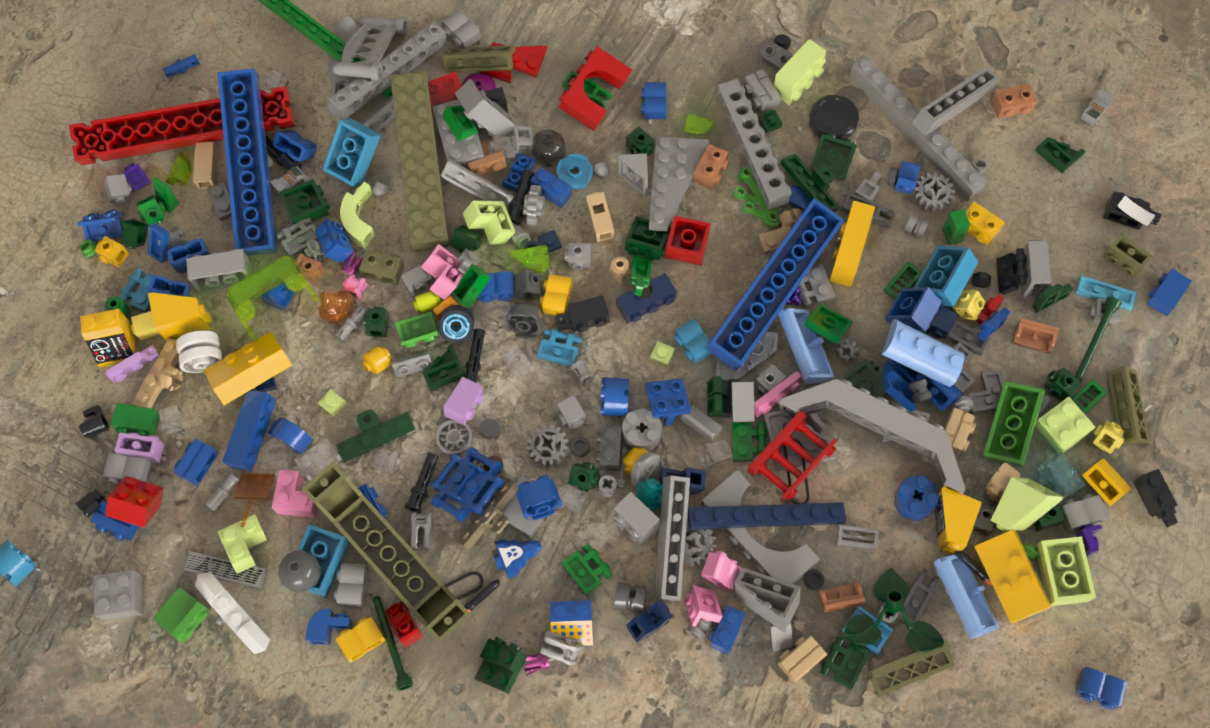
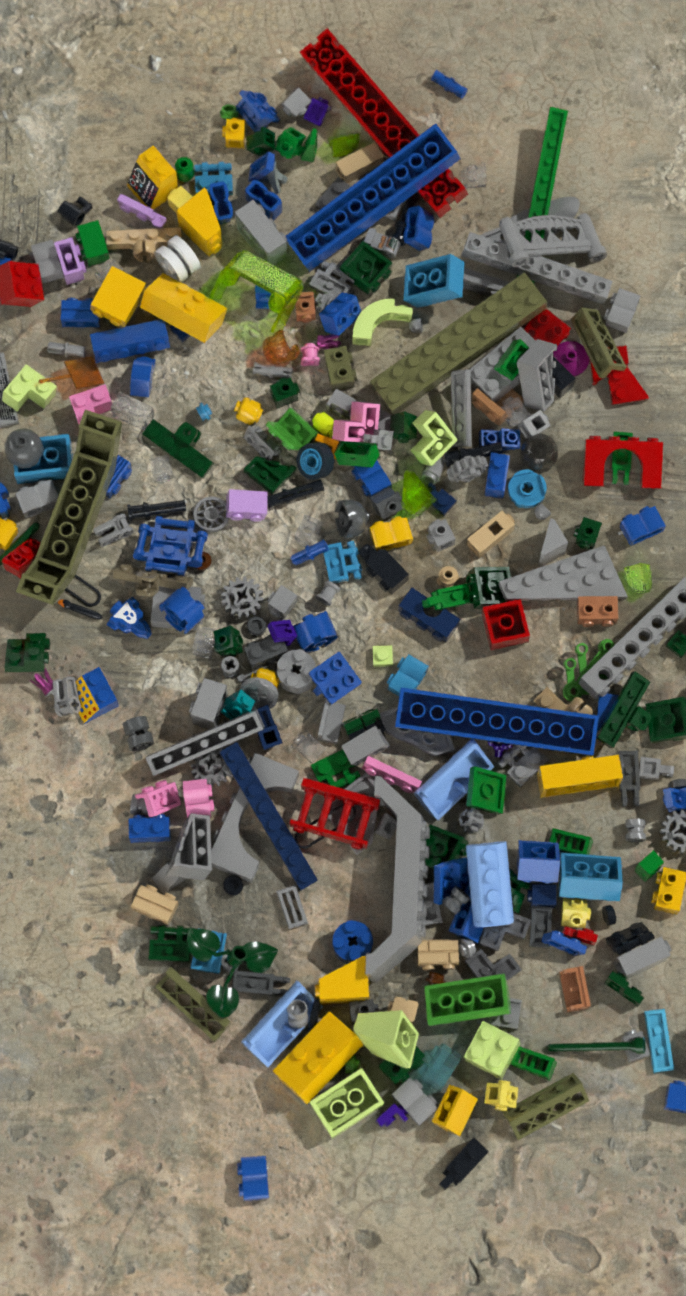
camera: 60 degrees right, 5 degrees up
(203, 417) = (118, 297): none -> yellow slope
(331, 402) = (191, 395): yellowish green plate -> none
(354, 397) = (204, 411): none -> dark azure plate
(490, 428) = (234, 541): dark grey tile -> none
(537, 369) = (309, 552): none -> blue axle
(583, 573) = (141, 683): green plate -> none
(602, 421) = (282, 631): none -> dark purple bracket
(649, 621) = (124, 759): dark blue brick -> none
(768, 379) = (402, 761): light grey brick -> none
(841, 597) = (228, 915): nougat hinge -> none
(965, 571) = (297, 1014): none -> light grey wheel
(978, 444) = (435, 978): none -> reddish brown plate
(1062, 384) = (534, 1031): dark green brick -> none

